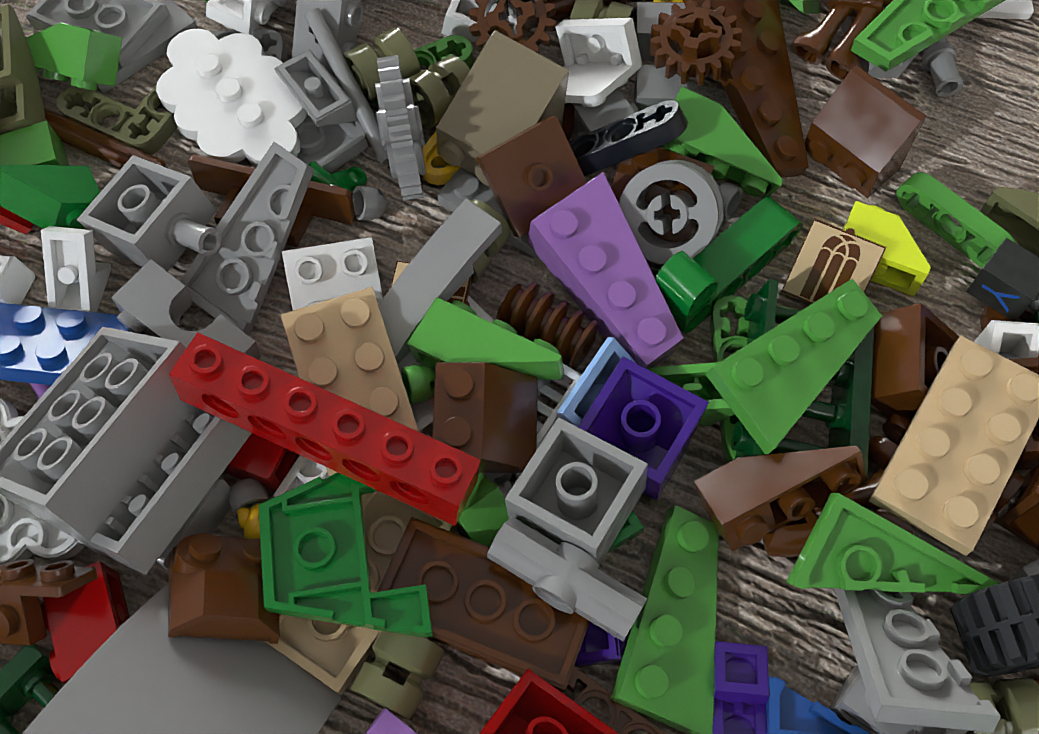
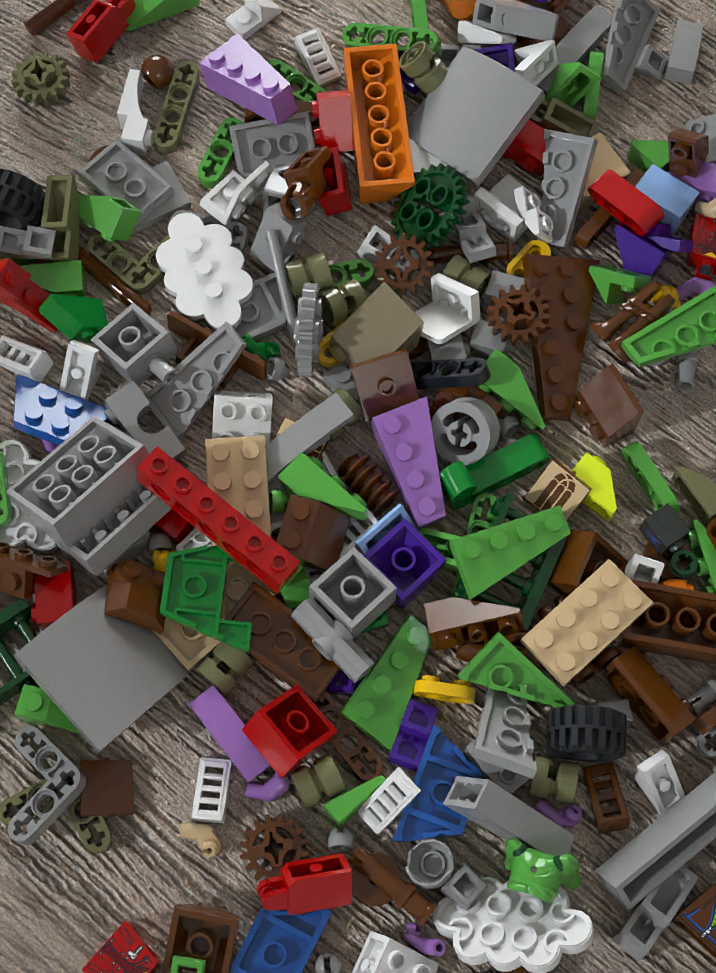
camera: 10 degrees right, 5 degrees up
(316, 90) = (260, 283): light grey slope -> none
(788, 610) = (457, 692): none -> yellow plate

